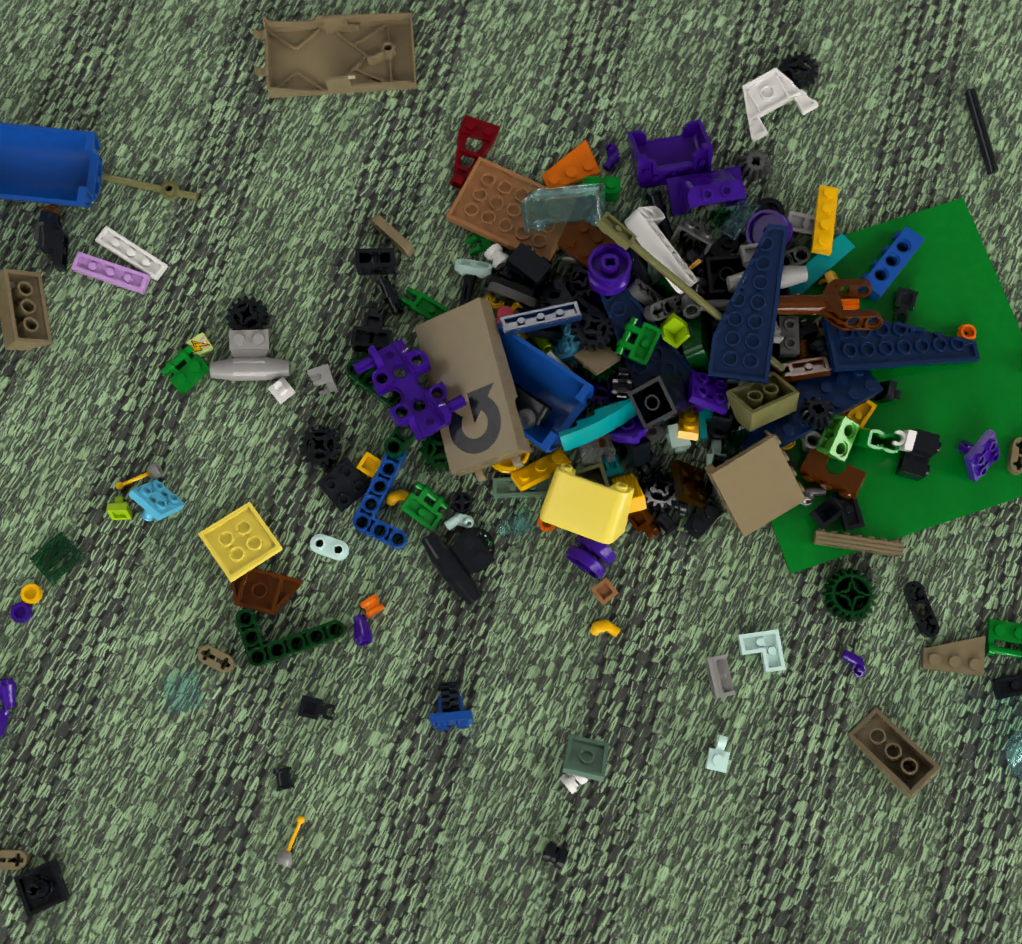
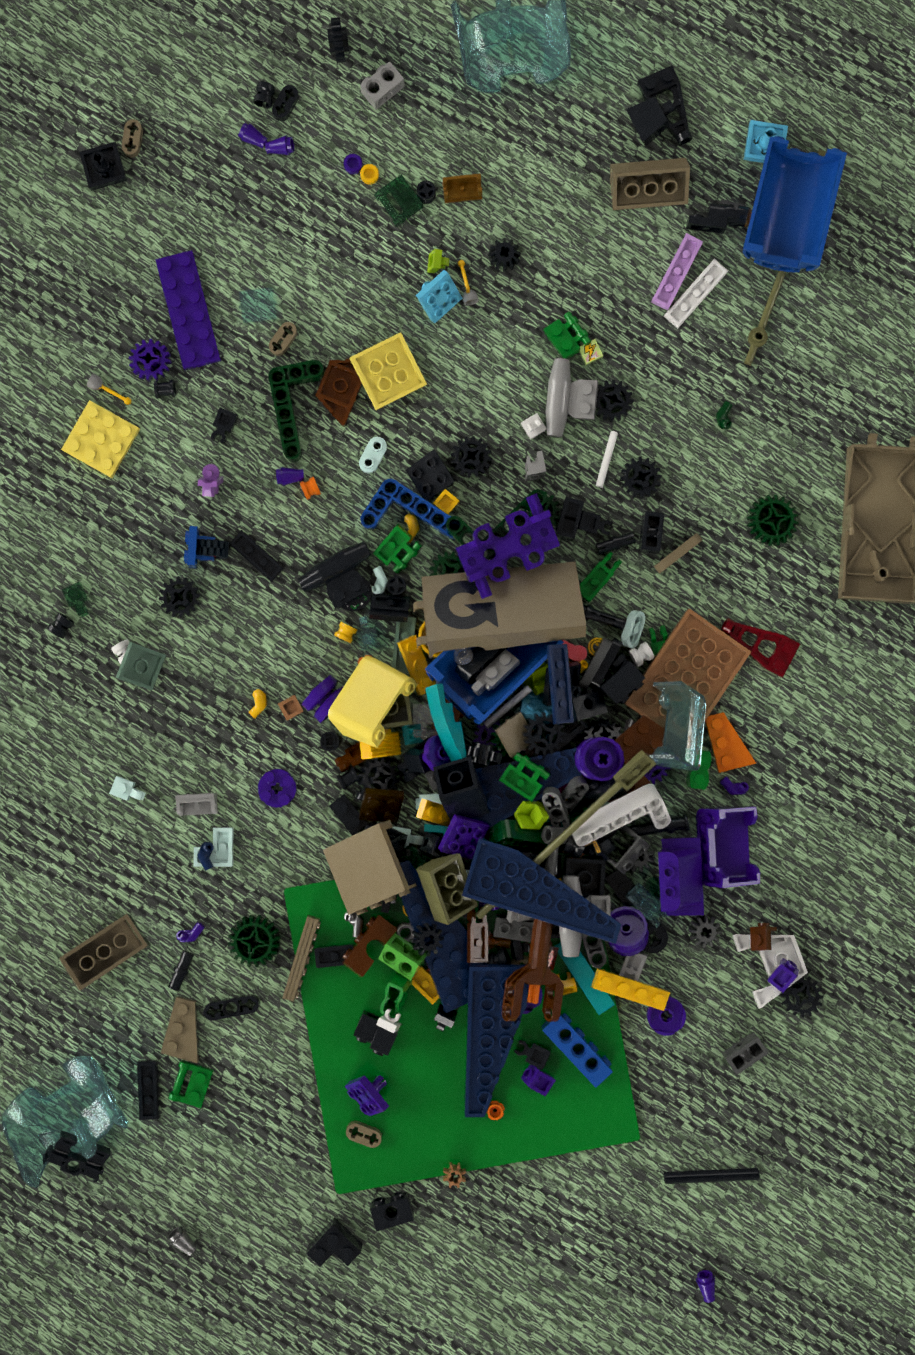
camera: 100 degrees right, 10 degrees up
(40, 494) = (462, 188): none -> pearl gold hinge
(43, 528) = (426, 187): none -> black wheel
(114, 438) = (509, 261): none -> black gear
(194, 767) = (188, 310): none -> dark purple plate
(253, 810) = (141, 358): none -> dark purple gear
(255, 212) = (722, 417): none -> dark green arm
(307, 315) = (606, 459): none -> white bar
(314, 284) = (637, 470): none -> black gear
(346, 843) = (100, 439): none -> light yellow plate
(361, 147) = (773, 527): none -> dark green gear
(377, 711) = (210, 480): none -> medium lavender hips
(450, 653) = (256, 556): none -> black tile
(486, 505) = (389, 607): none -> black plate
(513, 715) = (185, 590): none -> black gear
(517, 547) = (345, 632): none -> yellow wheel
(521, 844) = (76, 597): none -> clear green plate
(537, 386) = (495, 672): none -> light grey hinge
(628, 546) = (330, 741): none -> black wheel
(680, 603) = (270, 779): none -> dark purple plate
(750, 112) = (761, 937): none -> reddish brown bracket
(772, 658) = (204, 854): none -> dark blue arm
(783, 85) = (783, 975): none -> dark purple bracket
(827, 512) = (333, 933): black panel -> none
(847, 183) = (673, 1023): none -> dark purple plate
(861, 113) = (745, 1053): none -> dark grey brick
(895, 667) = (181, 970): none -> black pin
(928, 297) = (538, 1080): none -> dark purple bracket

